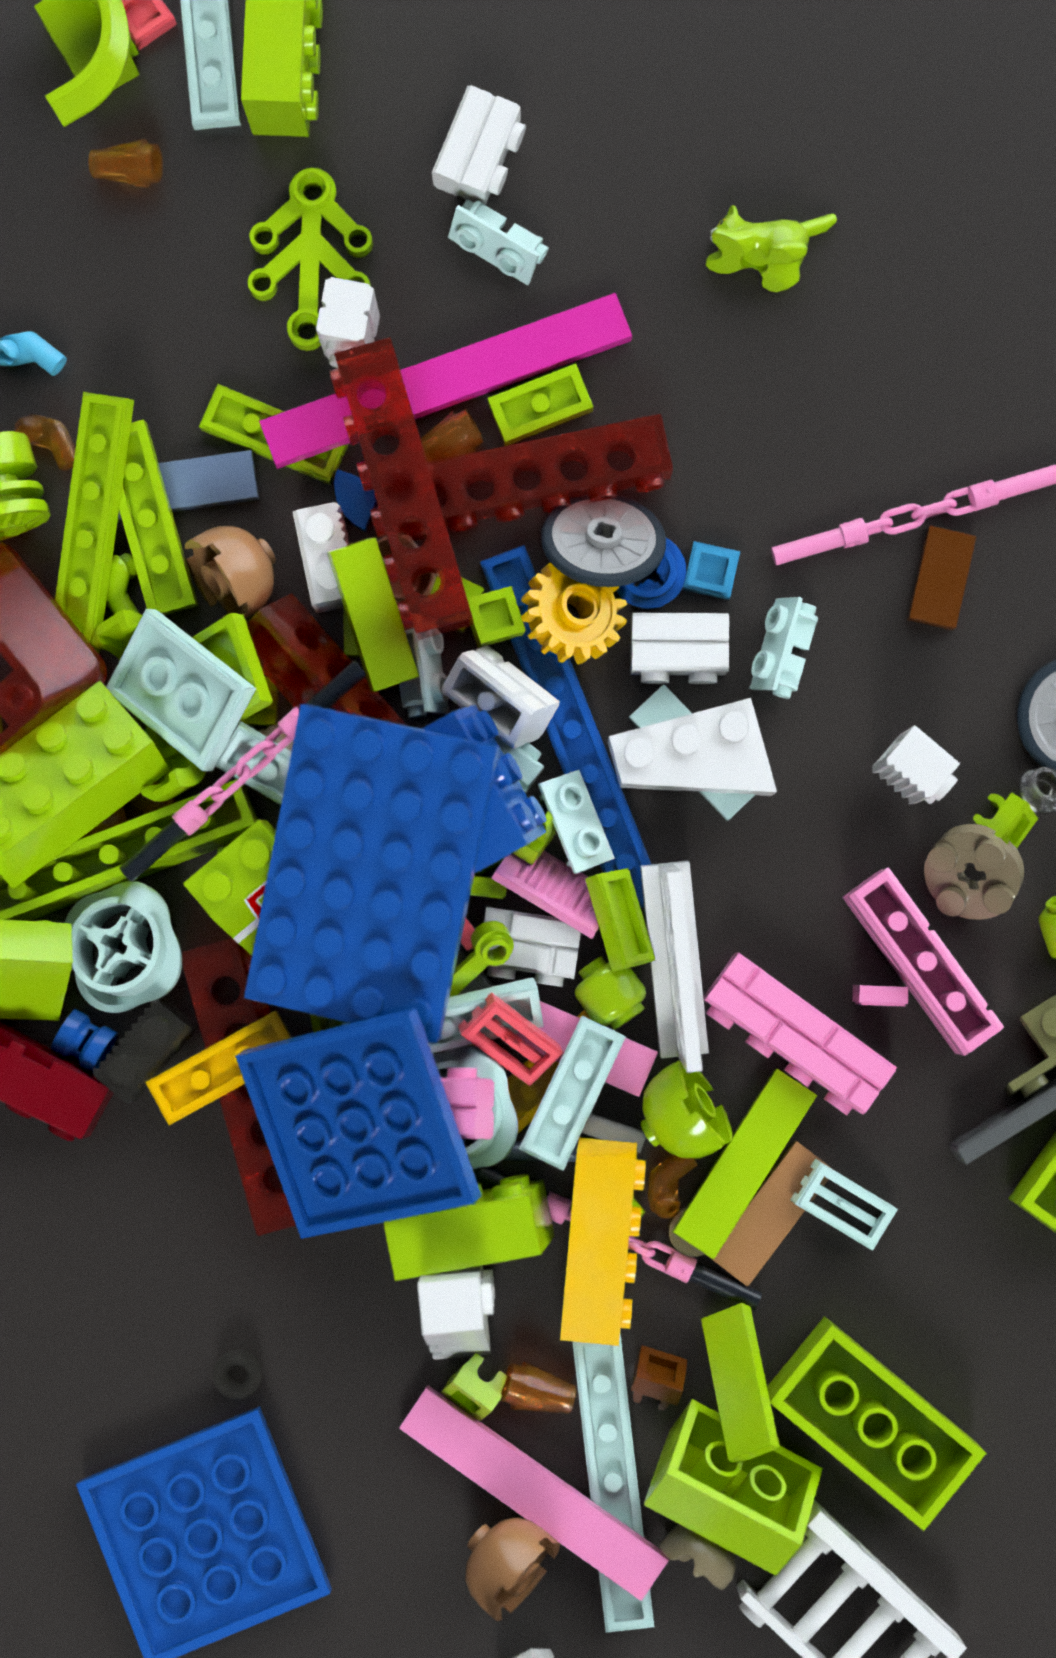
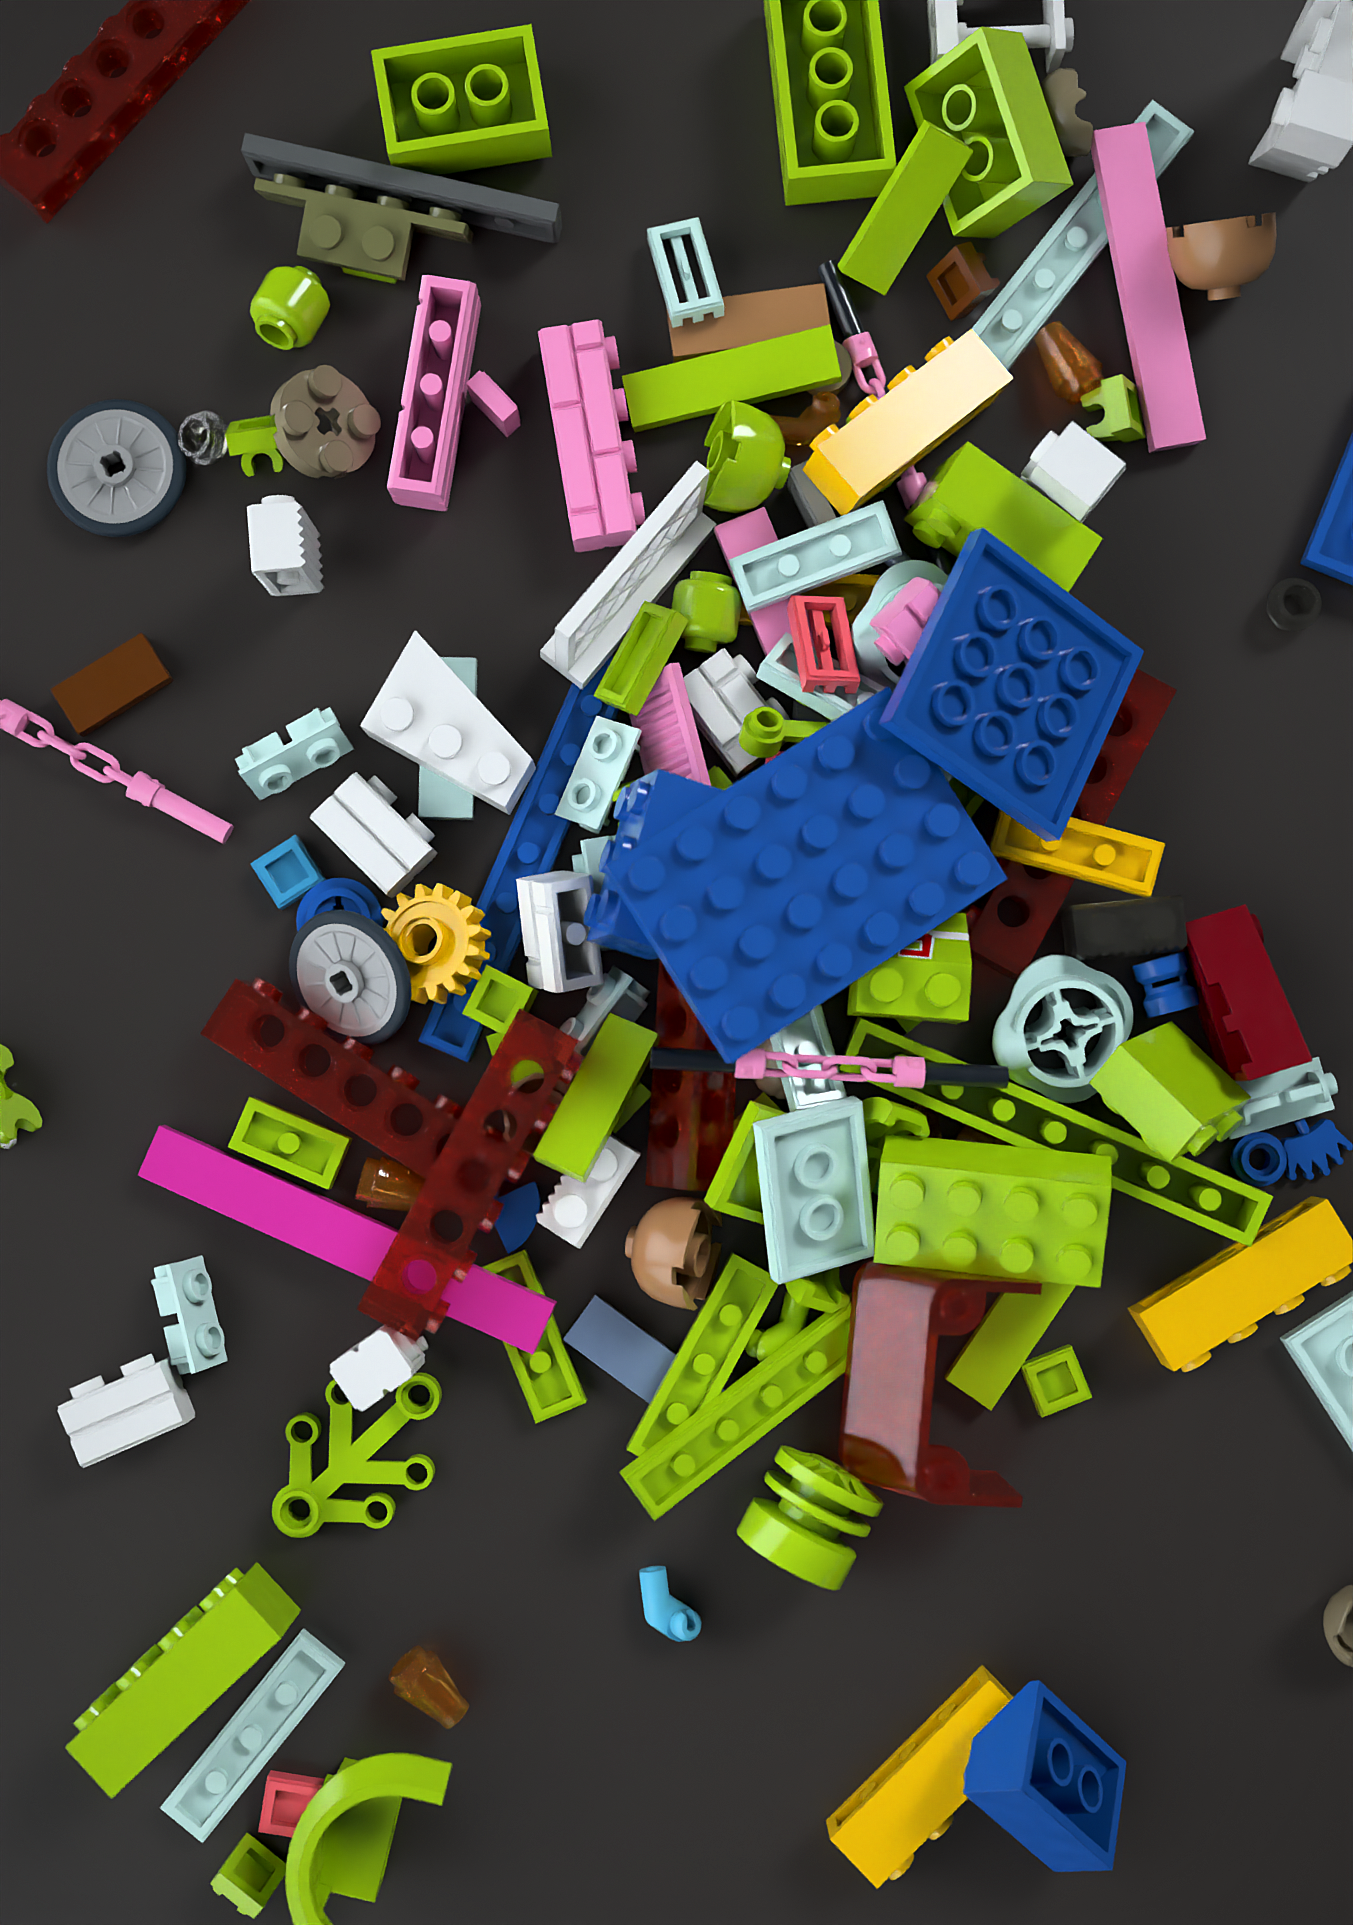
camera: 135 degrees left, 0 degrees up
(51, 435) = (715, 1518): clear orange arm -> none

